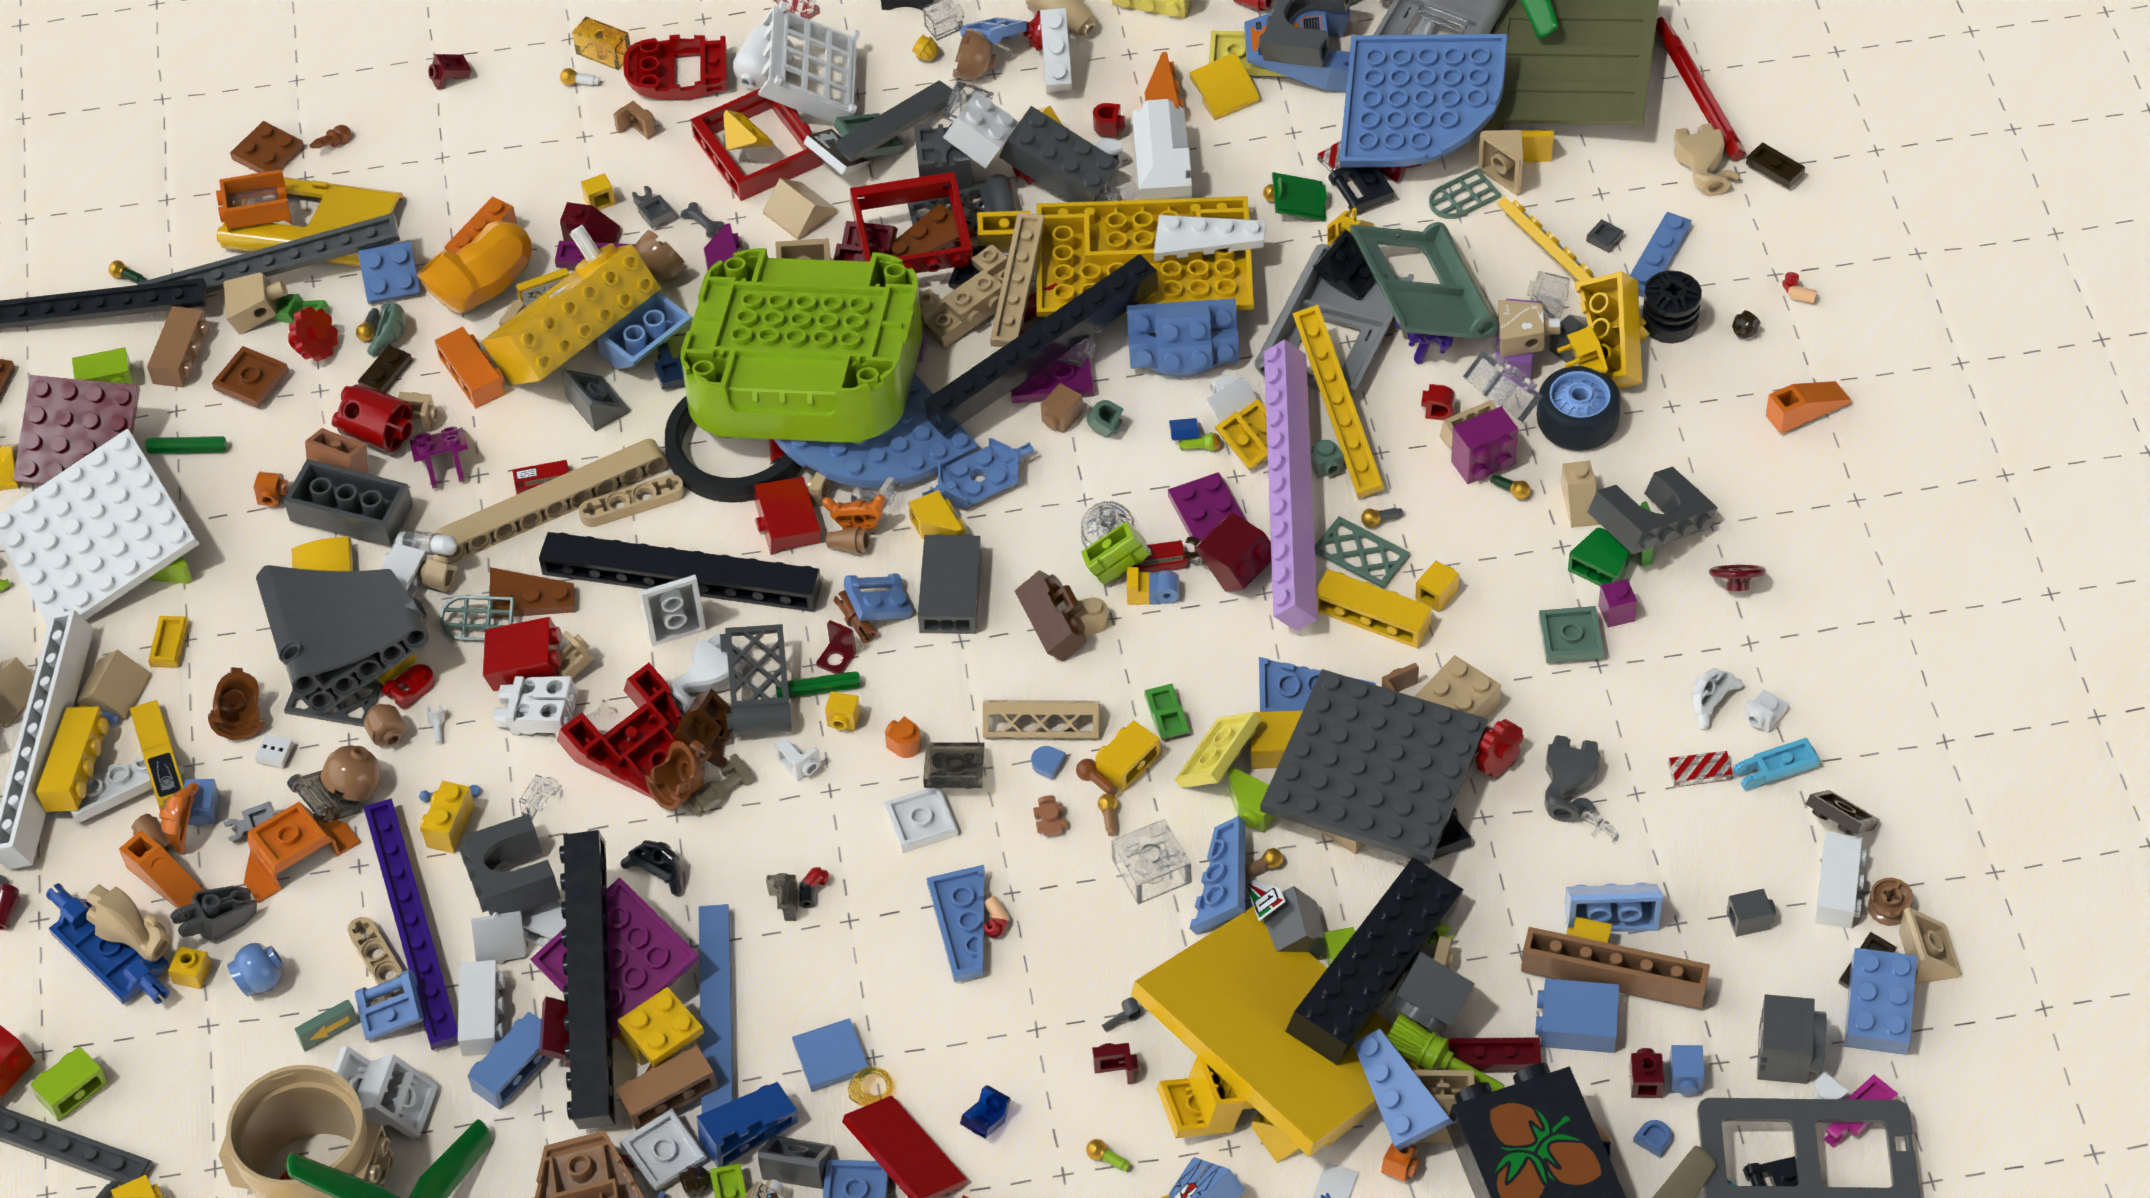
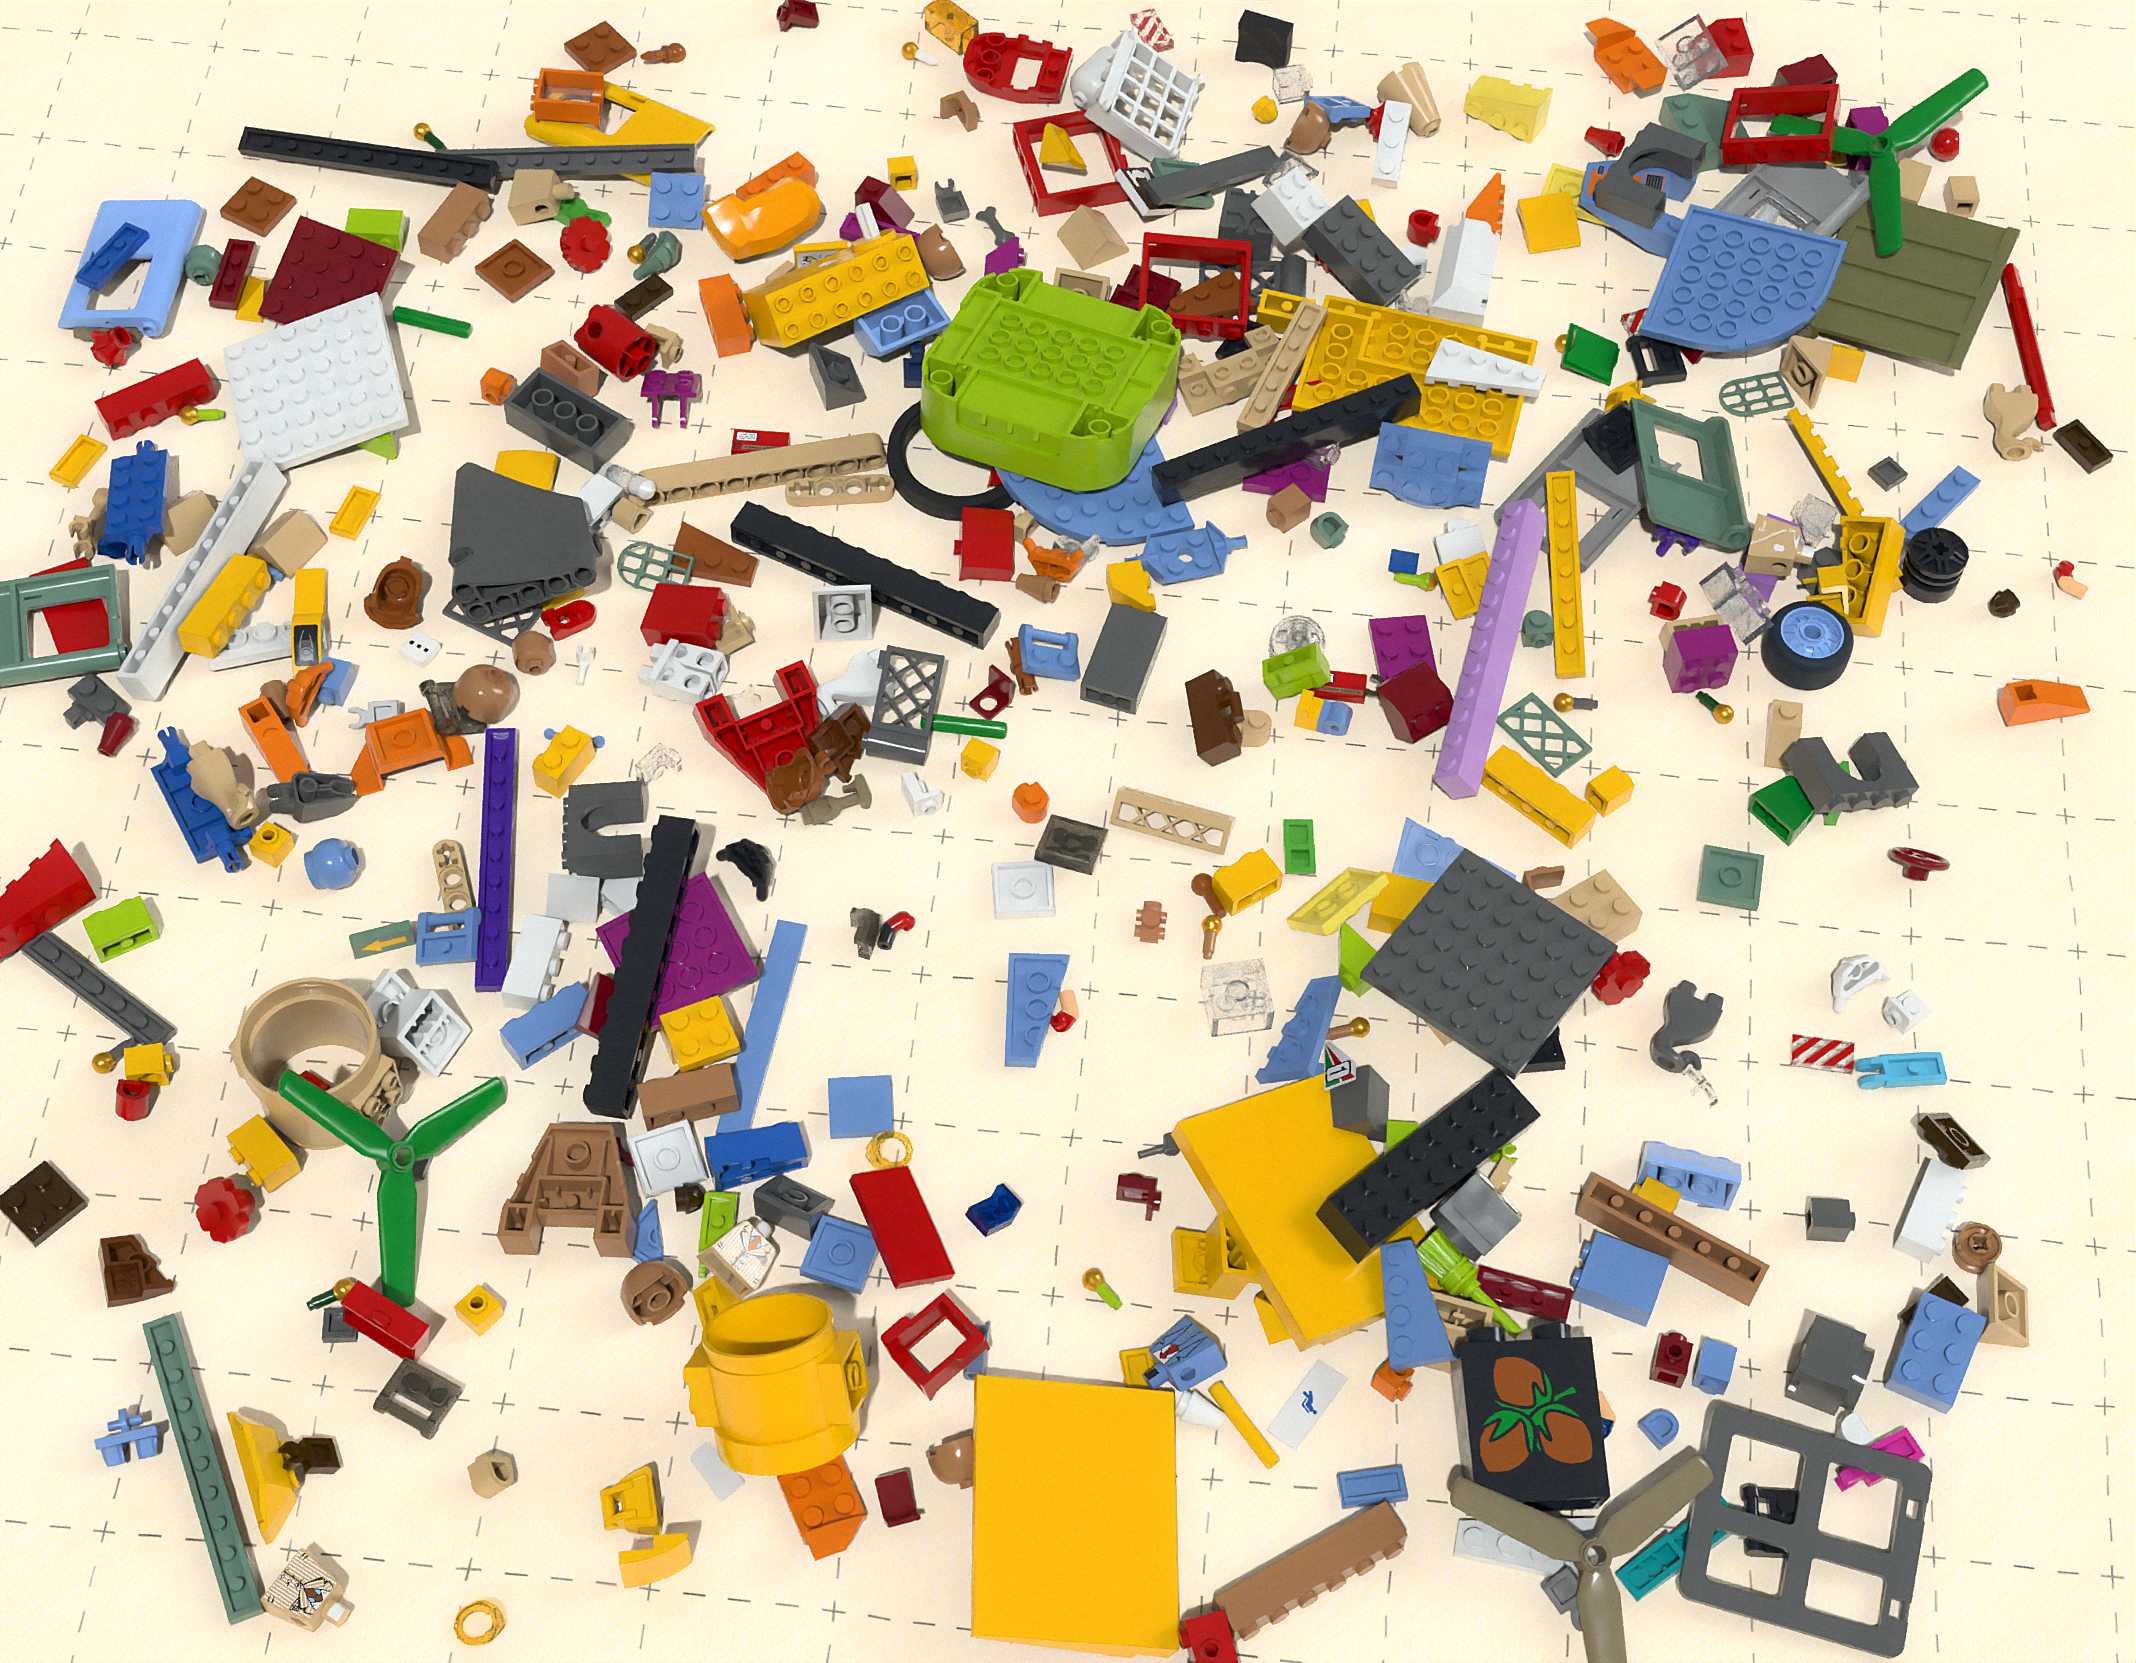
camera: 10 degrees right, 5 degrees up
(1047, 761) = (1165, 864): medium blue tile -> none
(1617, 603) = (1787, 858): magenta brick -> none

